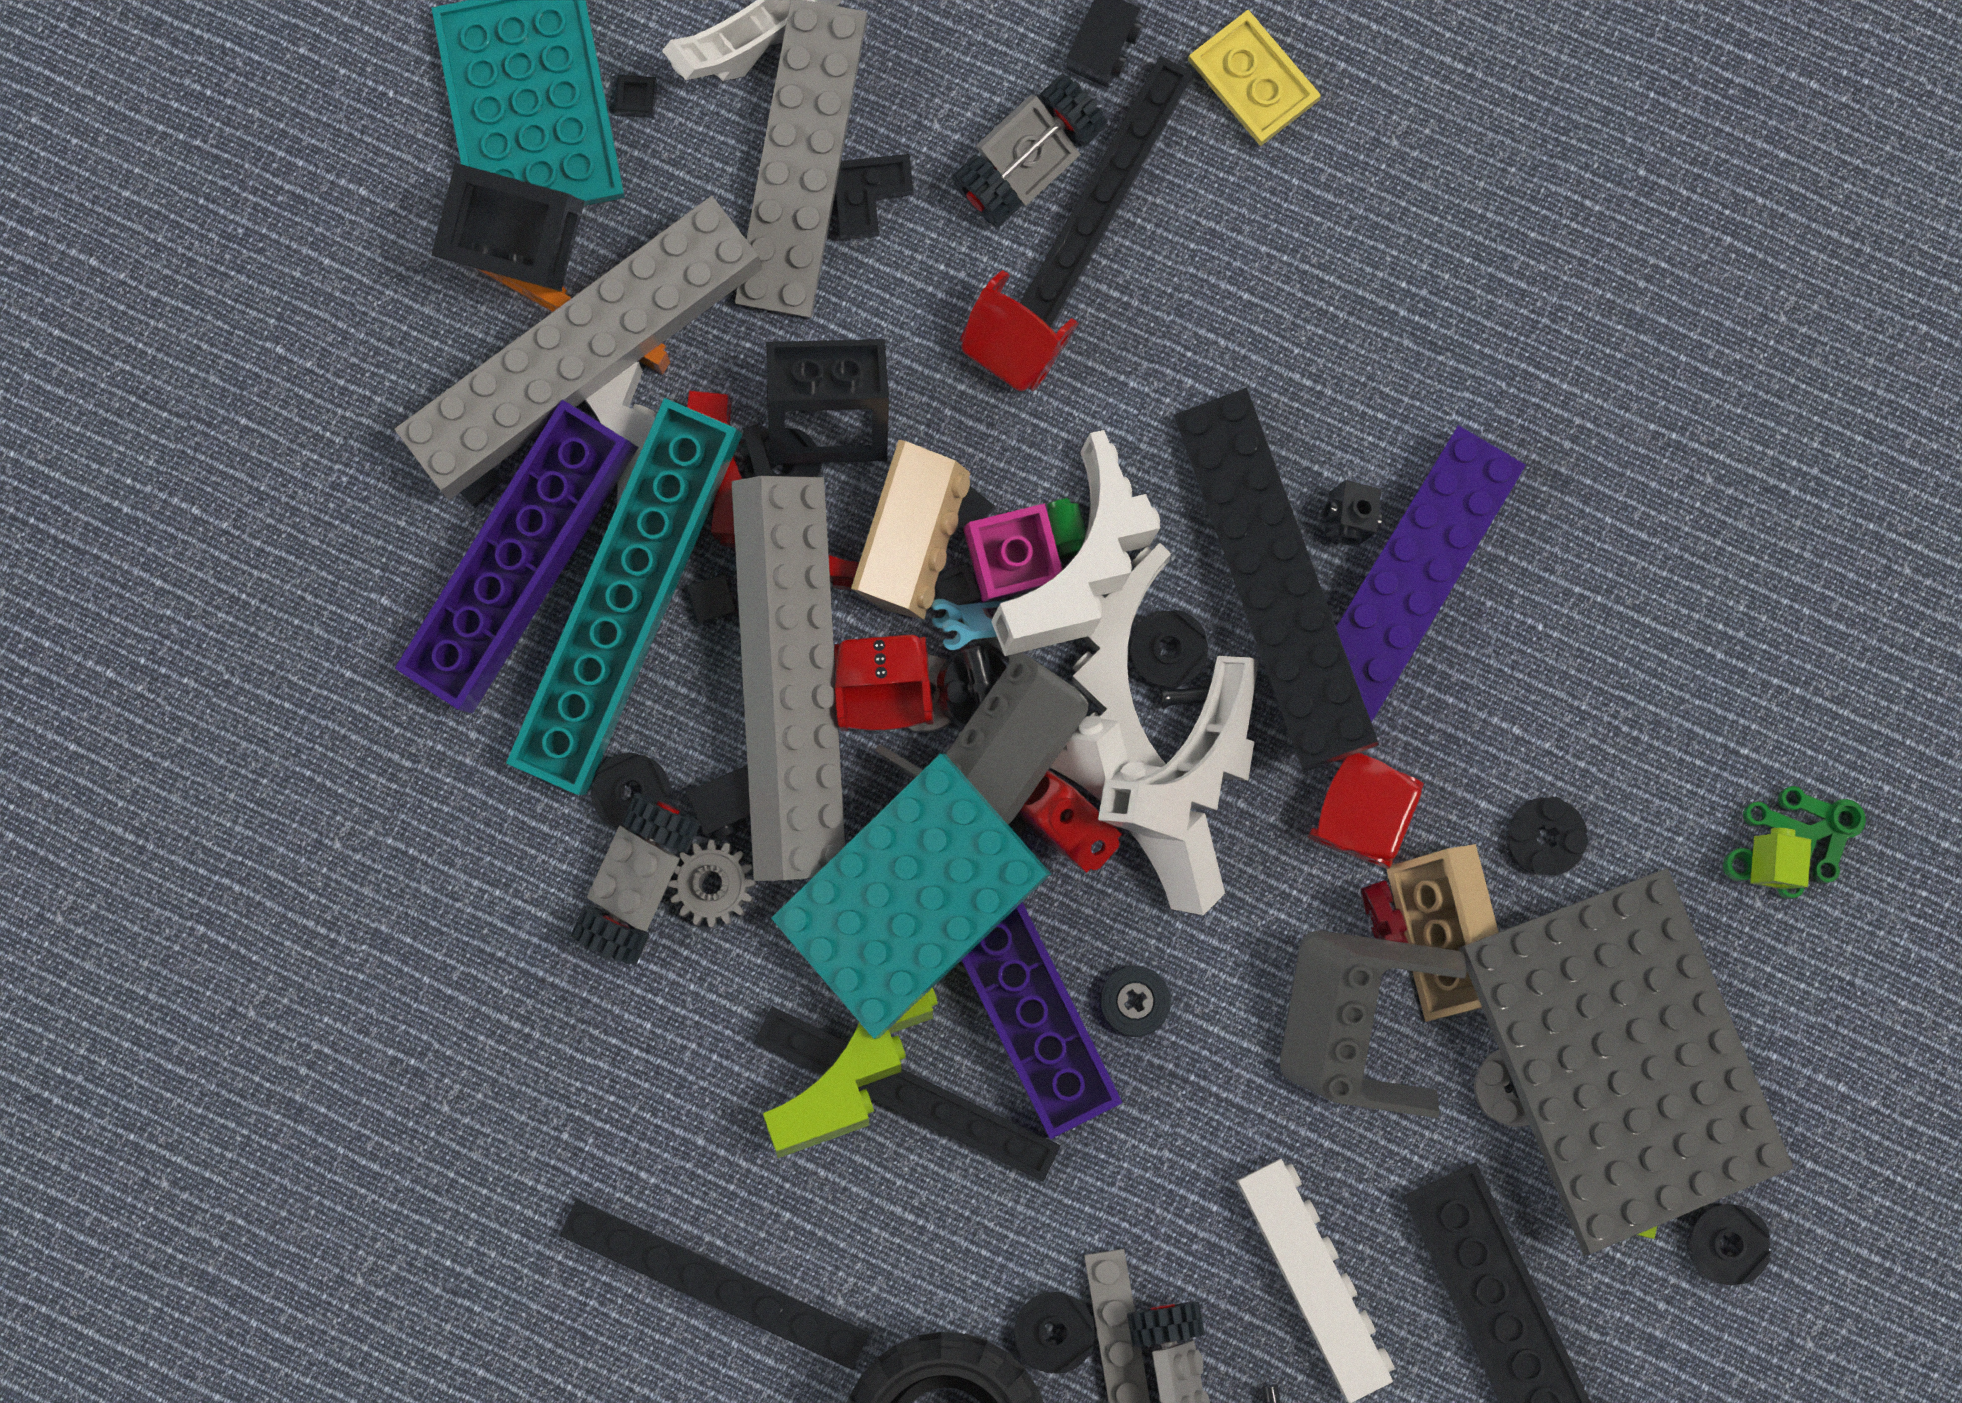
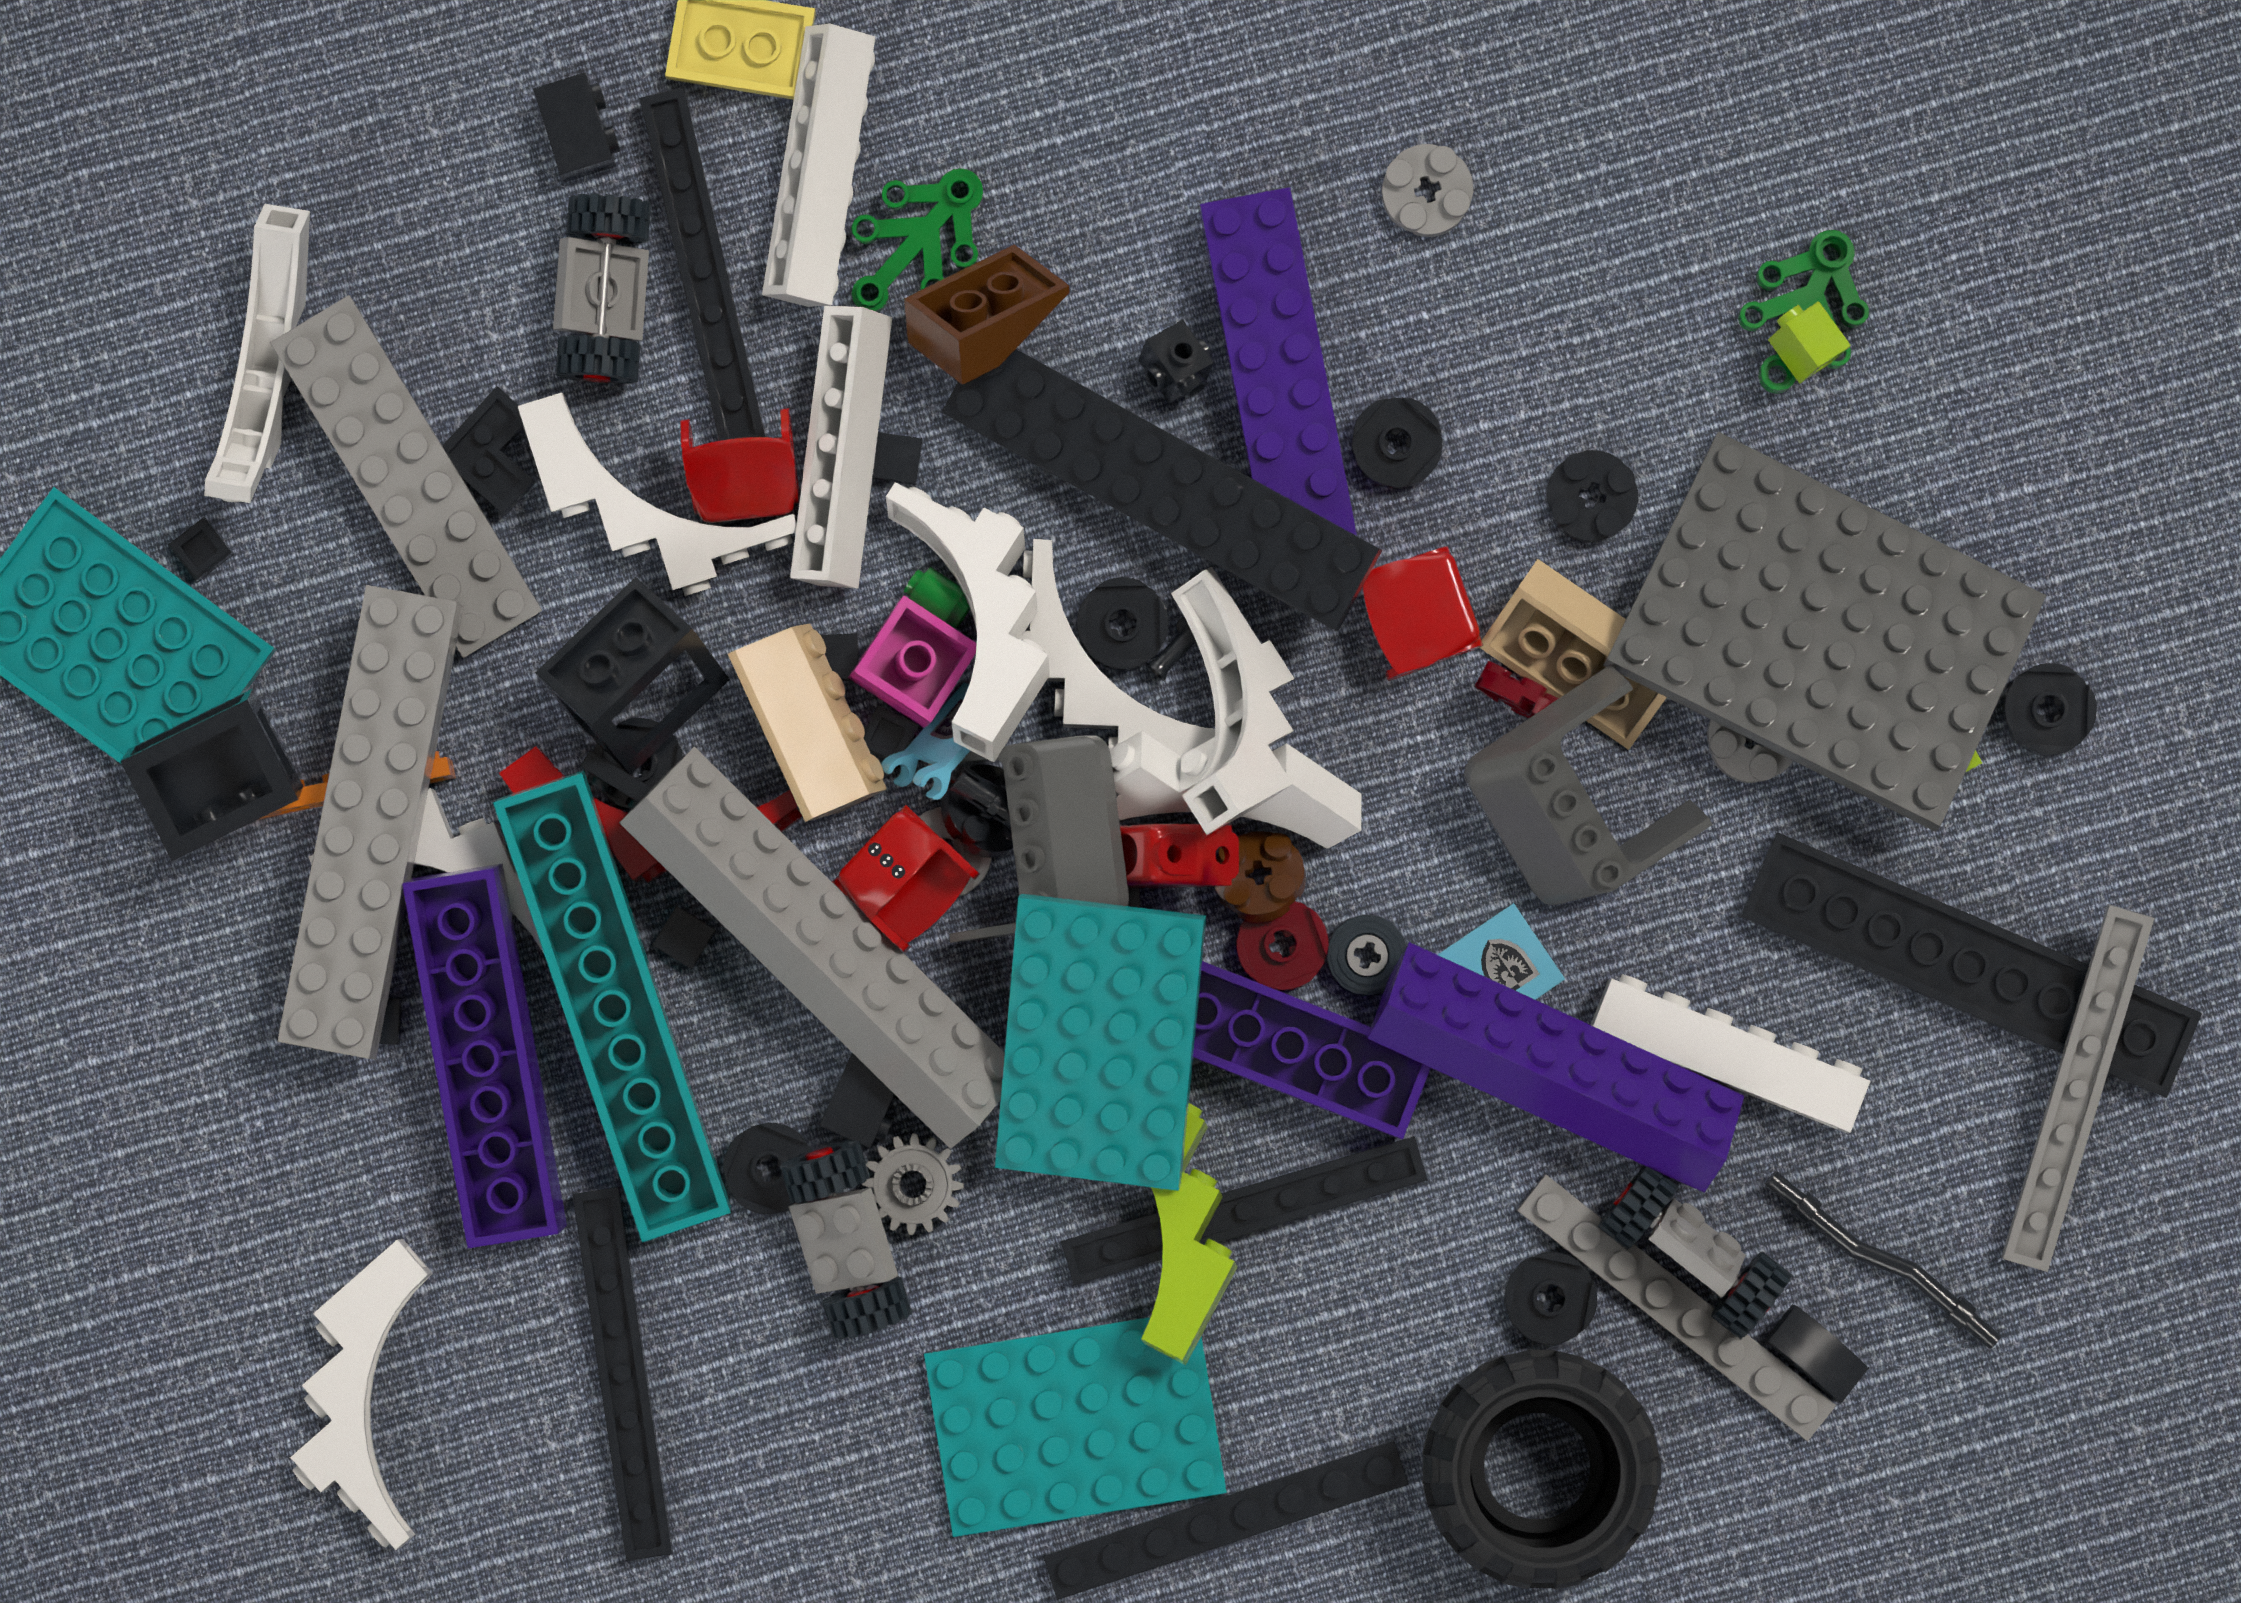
camera: 45 degrees left, 5 degrees up
(238, 689) = (342, 1389): none -> white arch
(420, 839) = (622, 1373): none -> black plate
(670, 1132) = (1070, 1427): none -> teal plate
(906, 251) = (575, 476): none -> white arch
(1066, 954) = (1306, 955): none -> dark red plate
(1090, 378) = (841, 447): none -> white brick
(1115, 906) = (1272, 899): none -> reddish brown plate
(1119, 419) = (897, 458): none -> black tile
(1193, 1185) = (1557, 1067): none -> dark purple brick
(1212, 1086) = (1508, 954): none -> medium azure flag
(1235, 193) = (819, 165): none -> white brick
(1255, 372) = (982, 312): none -> reddish brown slope
(1261, 294) = (920, 232): none -> green plant
(1463, 672) = (1397, 416): none -> black plate
(1634, 539) = (1440, 167): none -> light grey plate

